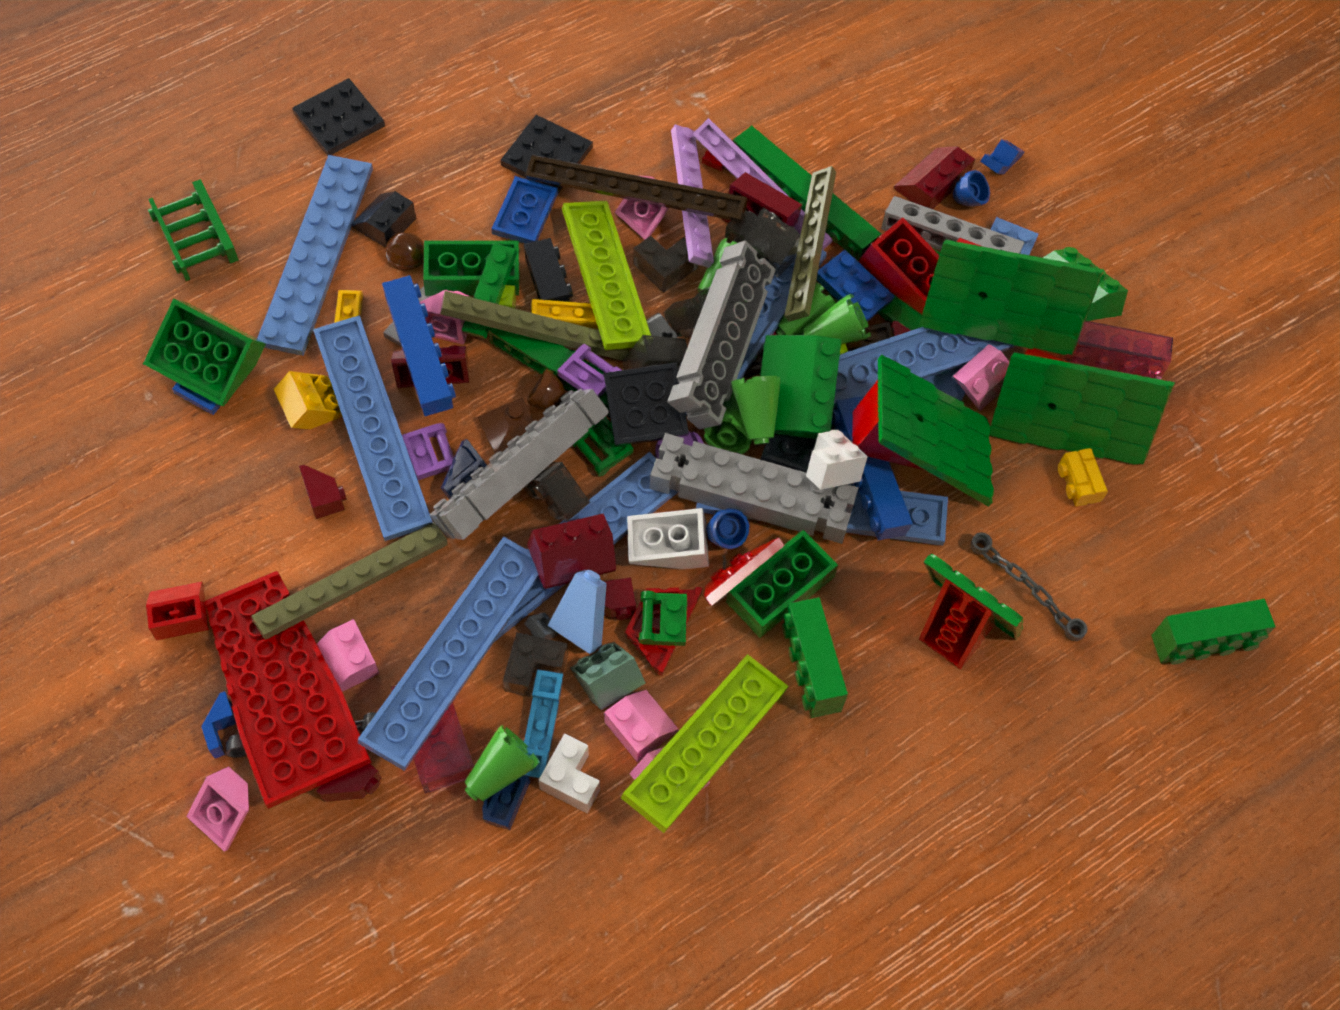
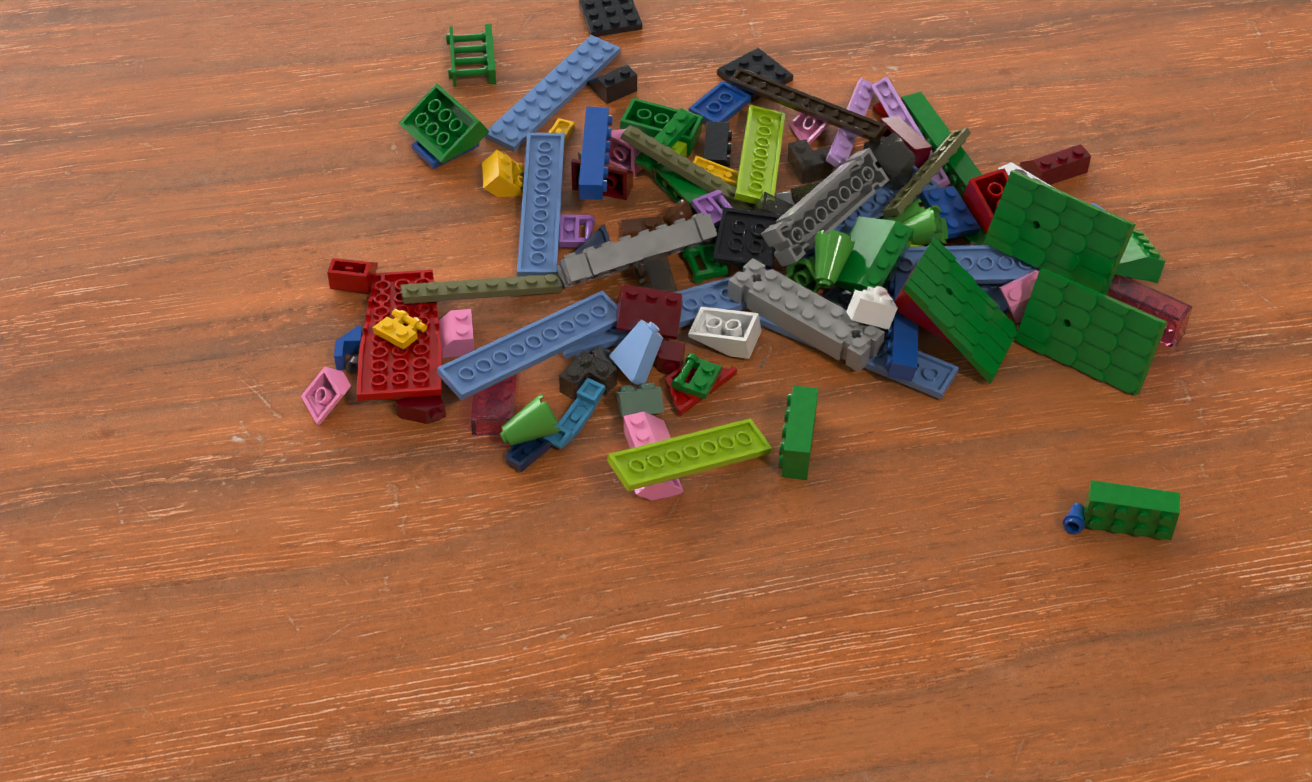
camera: 25 degrees right, 15 degrees down
(274, 689) = (396, 332): none -> yellow plate
(322, 492) = (487, 233): dark red slope -> none
(405, 251) = (617, 103): reddish brown hat -> none
(563, 775) = (579, 449): white brick -> none
(728, 528) = (774, 335): blue hat -> none
(740, 568) = (764, 363): wing -> none
(784, 578) = (812, 370): green brick -> none
(963, 615) = (925, 429): red piece -> none
(972, 189) = (1081, 177): blue hat -> none
(1003, 157) = (1120, 165): blue slope -> none
(1076, 624) = (1020, 480): dark grey piece -> none
(1082, 477) = (1076, 386): yellow brick -> none
(1153, 660) = (1074, 520): none -> blue cone

